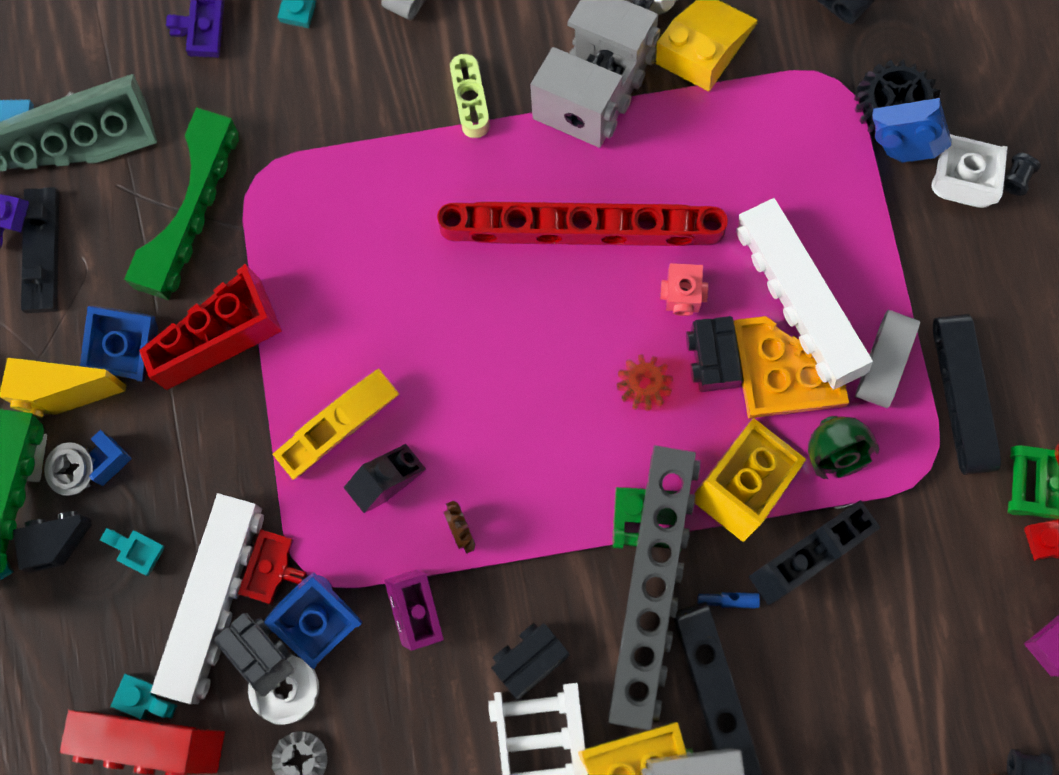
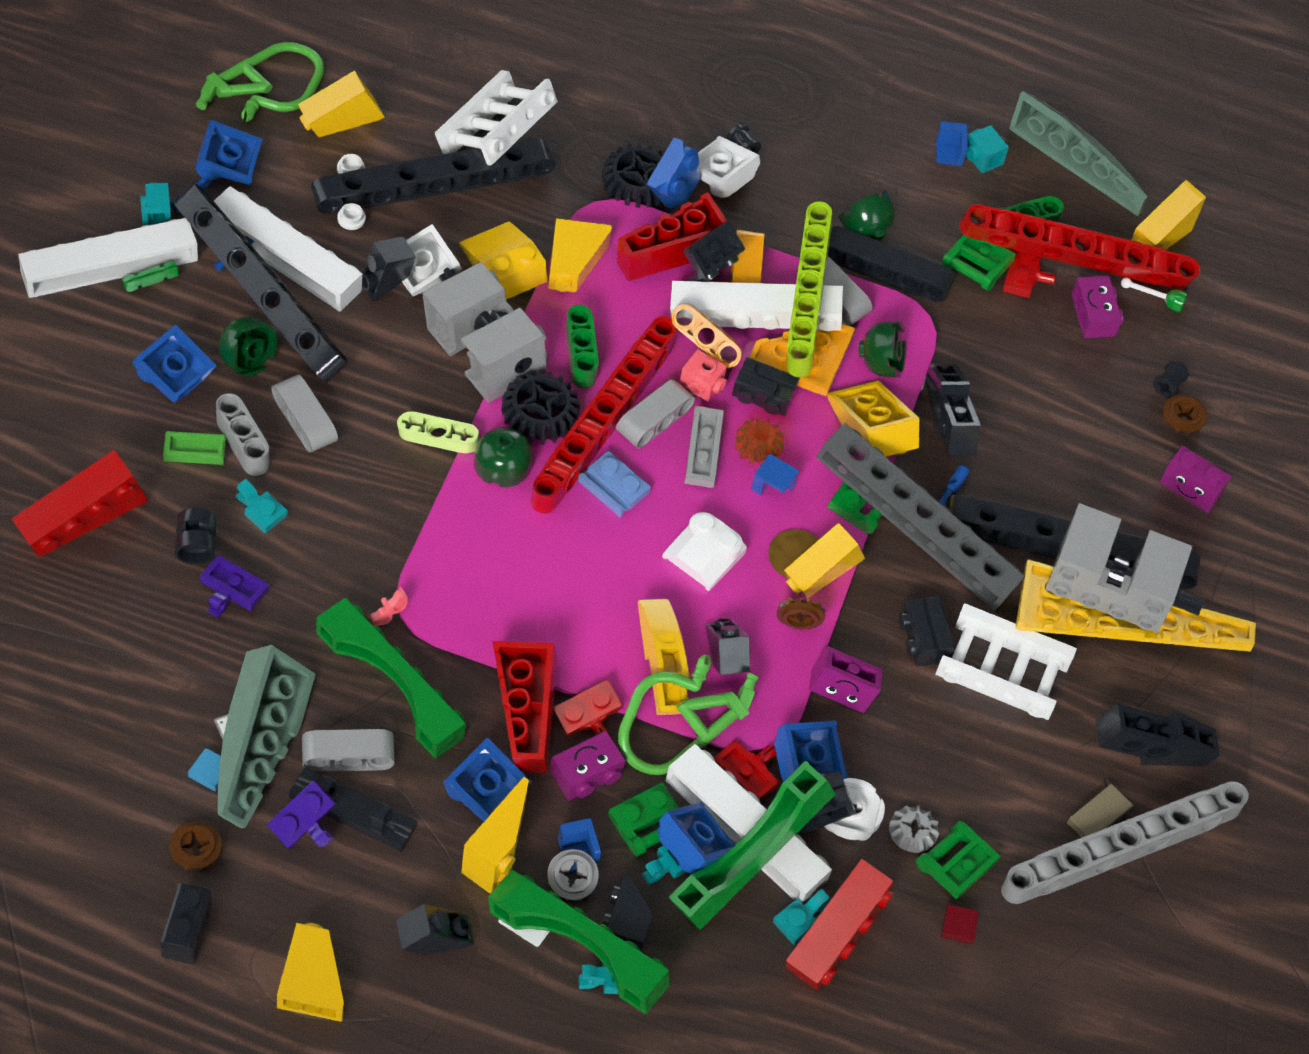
camera: 75 degrees left, 20 degrees down
(90, 212) = (348, 750): none -> light grey beam
(153, 560) = (693, 837): none -> blue slope
(174, 496) = (639, 814): none -> green plate
(187, 420) = (587, 766): none -> magenta brick
(187, 628) = (793, 807): none -> green arch
(249, 391) = (588, 709): none -> plate
(256, 162) = (394, 605): none -> coral piece
(321, 519) = (737, 706): none -> bright green piece
(473, 164) = (503, 457): none -> dark green cylinder
(486, 399) = (706, 549): none -> white slope
(511, 277) = (614, 484): none -> medium blue plate
(531, 147) = (546, 398): none -> black gear
(537, 519) = (824, 562): none -> yellow slope
(541, 489) = (788, 547): none -> pearl gold piece
(605, 334) = (704, 447): none -> light grey plate
(608, 419) = (775, 474): none -> blue panel
(613, 269) = (655, 413): none -> light grey beam
(651, 148) = (581, 346): none -> green beam
(733, 280) = (701, 321): none -> light orange beam
(752, 95) = (576, 252): none -> yellow slope
(827, 214) = (713, 252): none -> black bracket
(832, 173) = (660, 245): none -> red wedge
(851, 317) = (809, 289): none -> lime beam
(858, 256) = (749, 265): none -> light orange beam
(1009, 345) = (870, 216): none -> dark green cylinder

